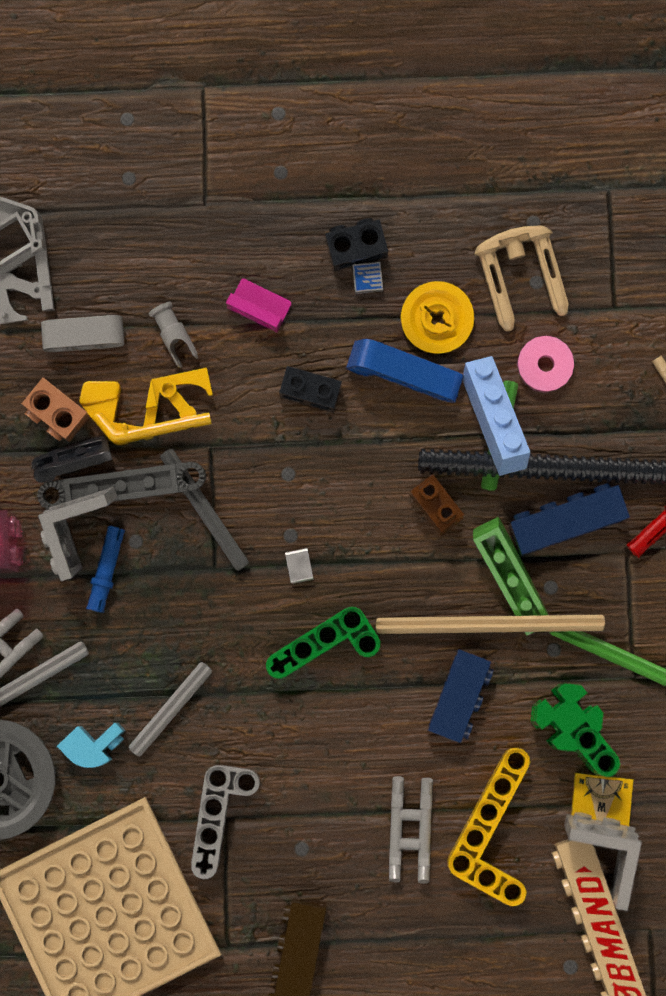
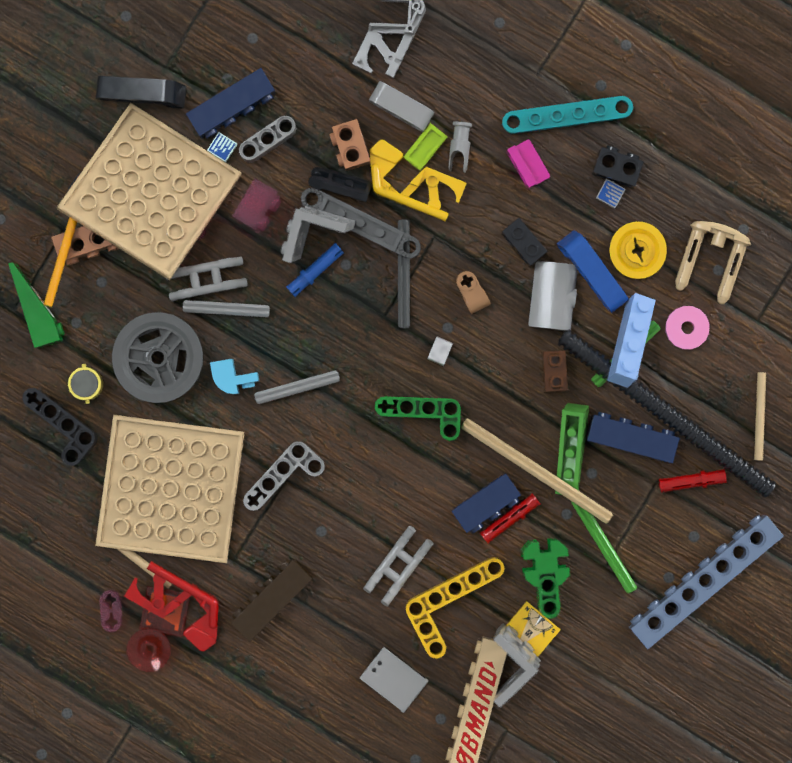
camera: 35 degrees right, 5 degrees up
(137, 360) = (425, 147): none -> lime tile
(265, 226) = (567, 114): none -> teal plate
(296, 481) = (473, 296): none -> medium nougat piece
(380, 425) = (553, 295): none -> light grey panel
(490, 958) = (393, 679): none -> light grey container
(507, 663) = (489, 533): none -> red pin

